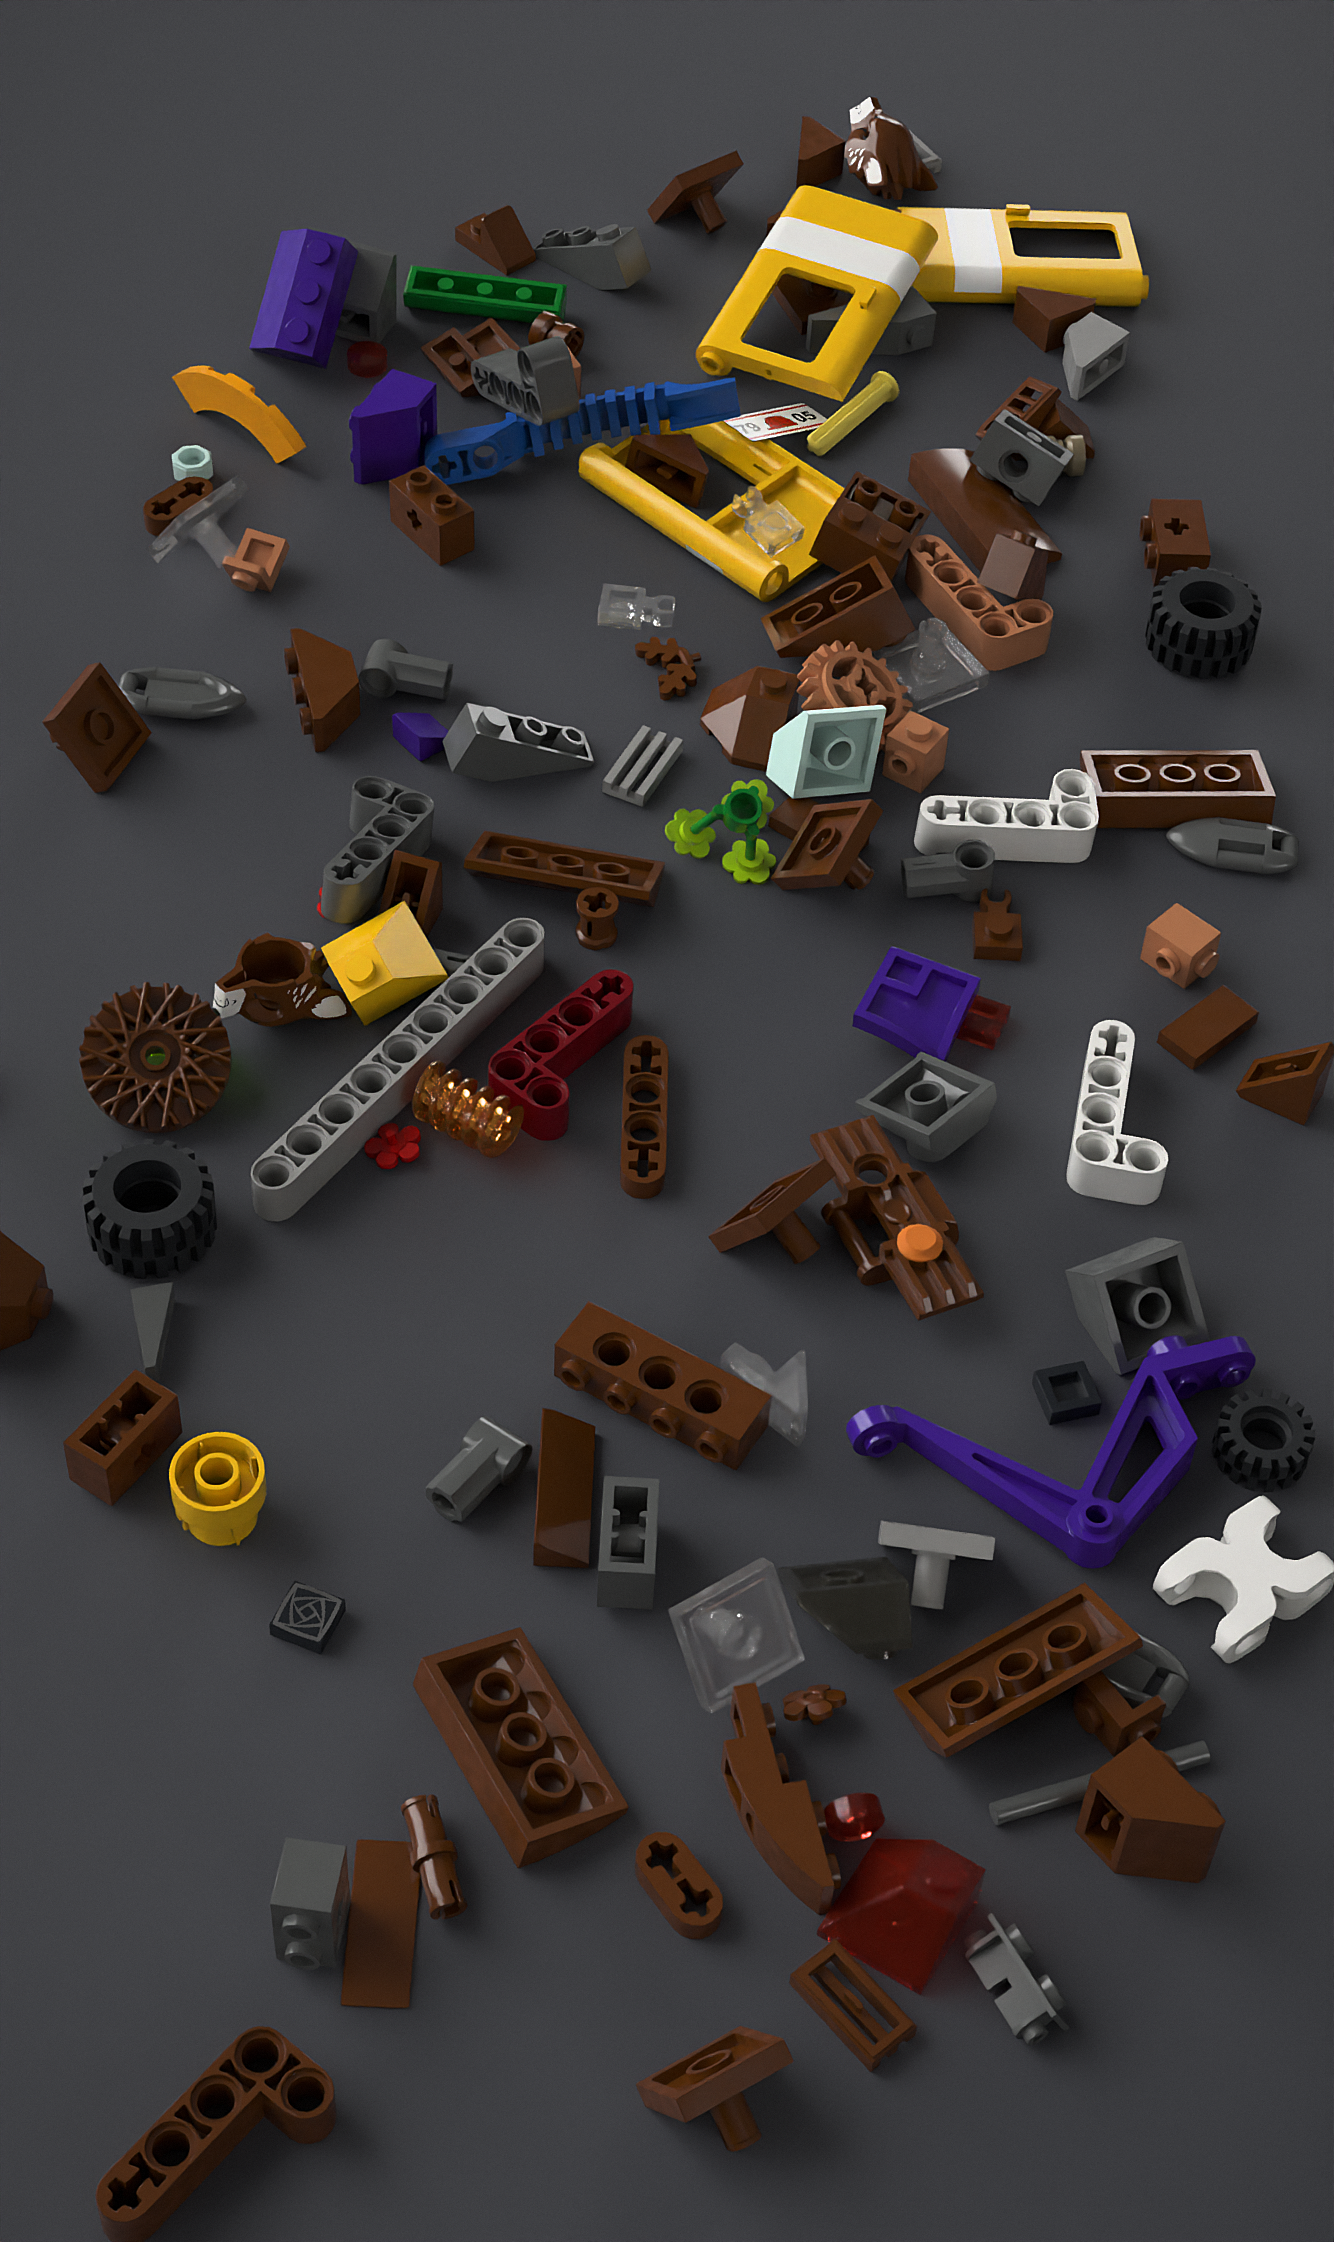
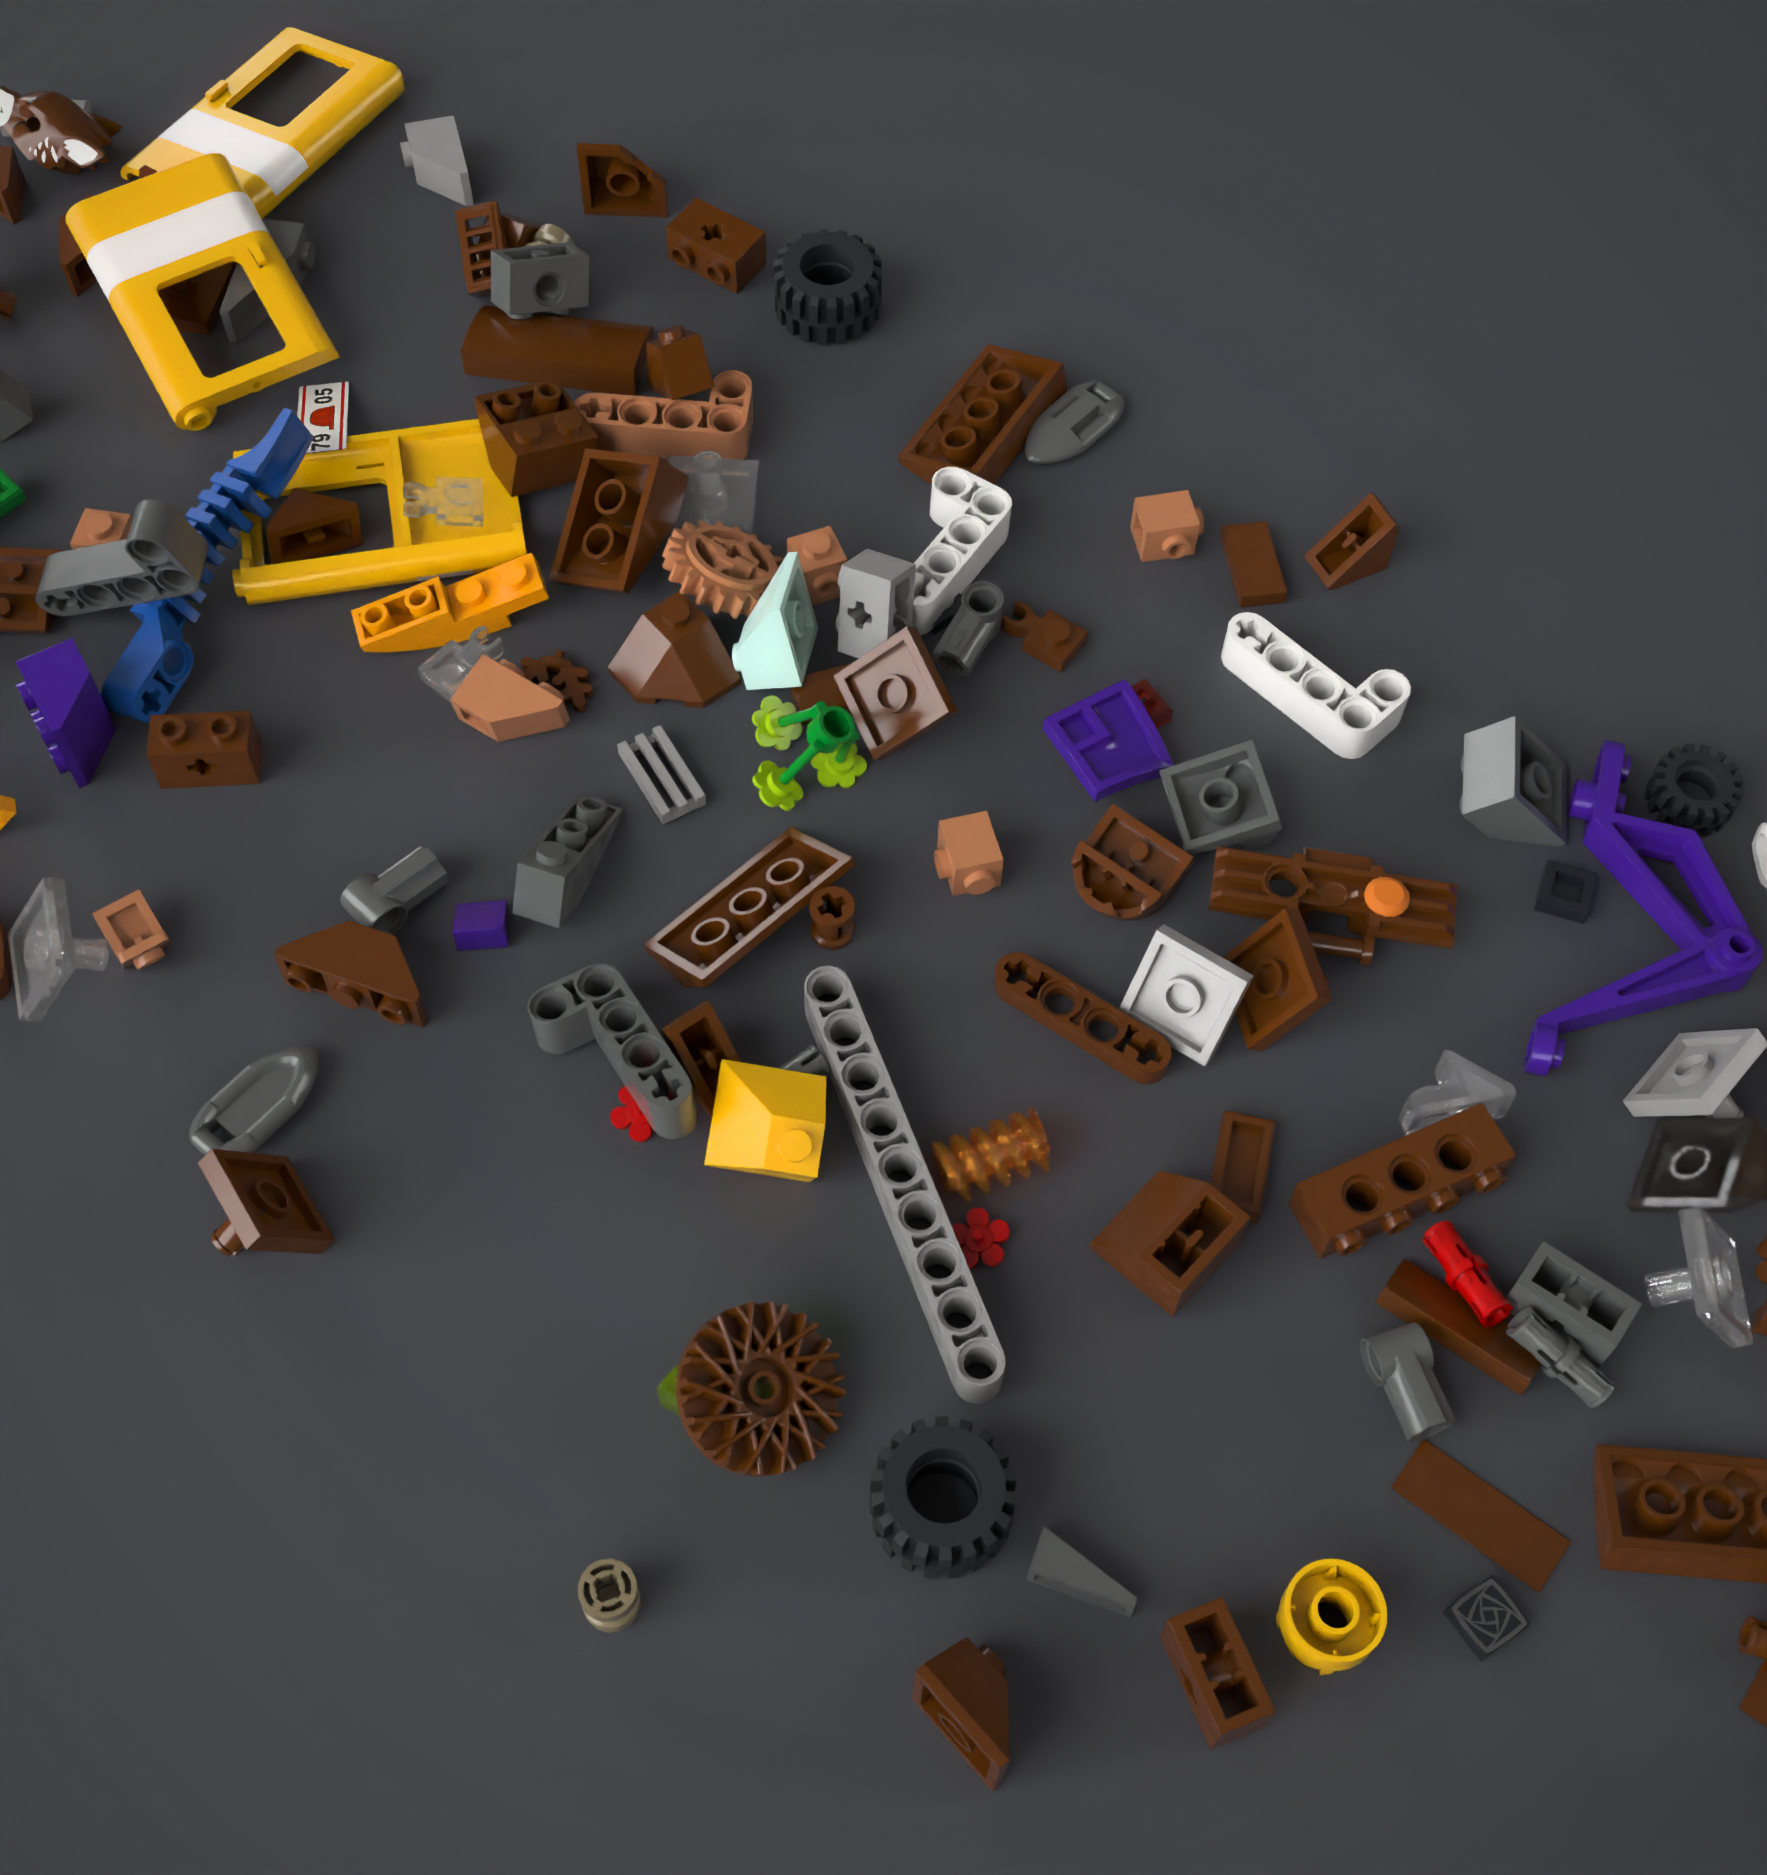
camera: 55 degrees left, 10 degrees up
(278, 984) = (733, 1228): reddish brown piece -> none
(401, 1583) = (1481, 1515): none -> reddish brown sticker
(478, 1258) = (1172, 1238): none -> reddish brown slope
(550, 325) = (57, 509): reddish brown wheel -> none
(554, 1046) = (970, 1032): dark red beam -> none
(576, 1560) = (1560, 1357): none -> dark grey pin
(595, 1278) = (1243, 1160): none -> reddish brown tile
(607, 1460) = (1467, 1274): none -> red pin
(615, 642) = (506, 704): none -> nougat slope
(665, 570) = (436, 614): none -> light orange slope
(709, 1156) = (1185, 994): none -> tile
(730, 971) = (968, 854): none -> nougat brick
(808, 1077) = (1127, 867): none -> reddish brown slope
(880, 390) = (346, 320): light yellow axle -> none
(901, 788) = (873, 601): none -> light grey brick
(1048, 314) = (367, 155): reddish brown slope -> none
(1171, 450) = (619, 182): none -> reddish brown slope

